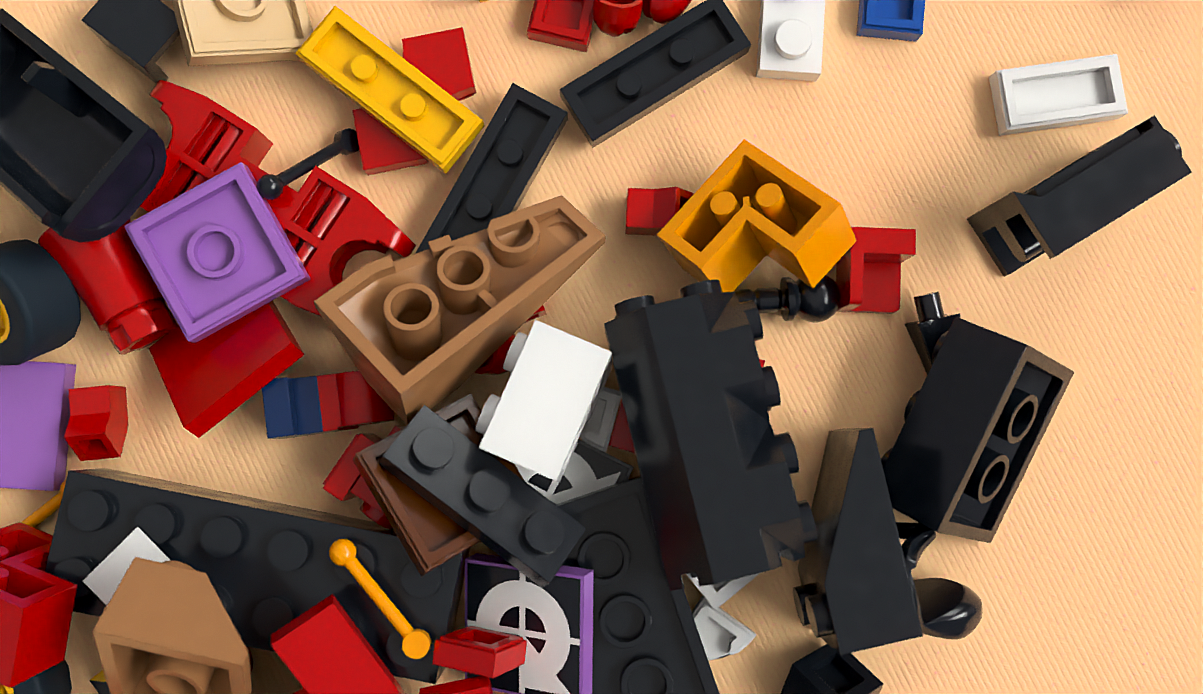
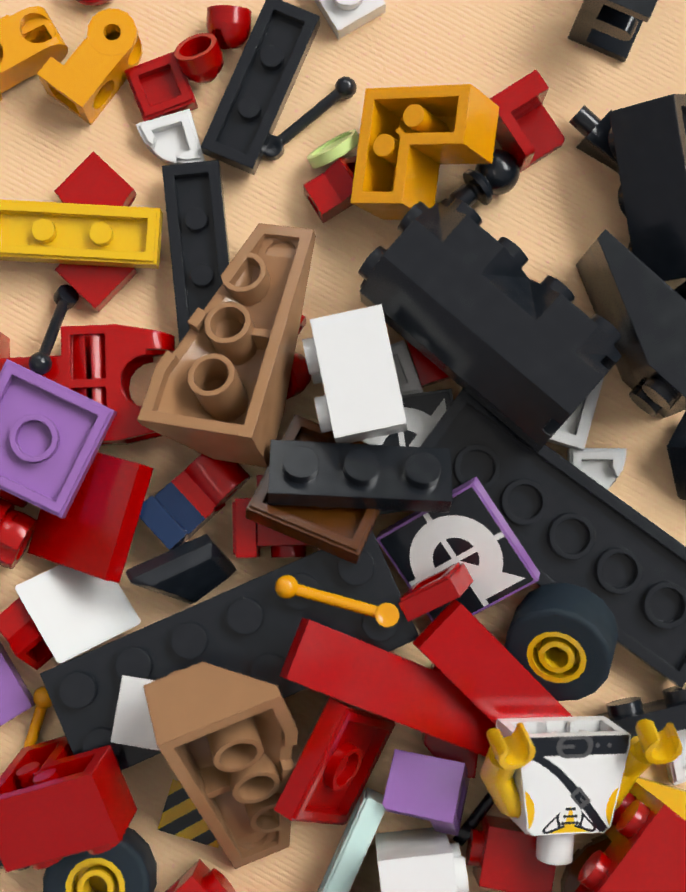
camera: 30 degrees left, 0 degrees up
(145, 436) = (75, 610): none -> white sticker
(271, 466) = (185, 571): none -> black piece
(543, 64) = (172, 138): none -> white tile
(679, 174) = (333, 149): none -> yellowish green piece
(730, 126) = (344, 89): none -> black hinge

